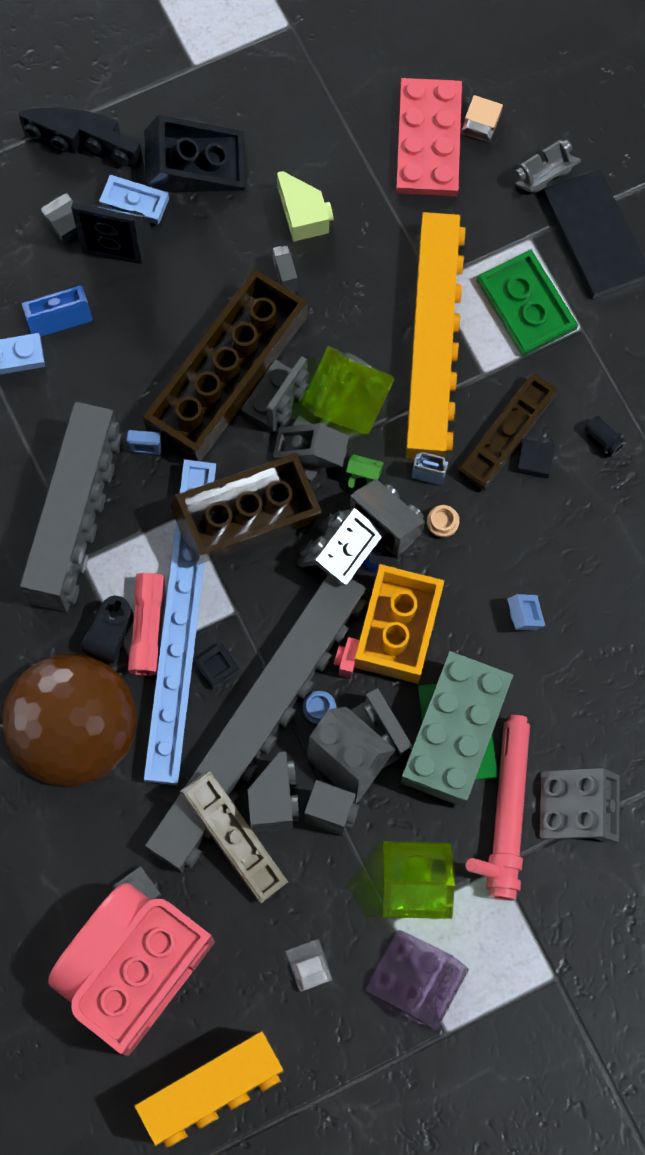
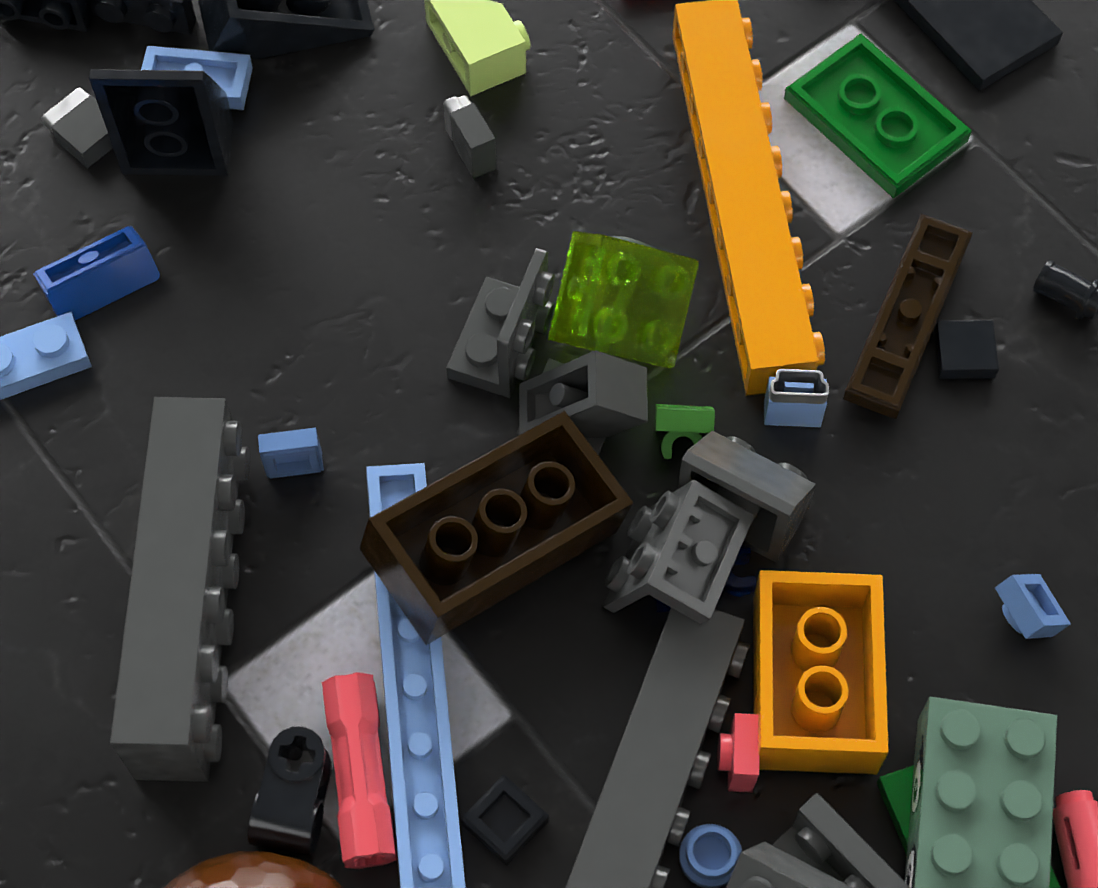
camera: 10 degrees left, 10 degrees down
(226, 366) = (405, 302): dark brown brick -> none
(443, 521) = (841, 482): light nougat plate -> none

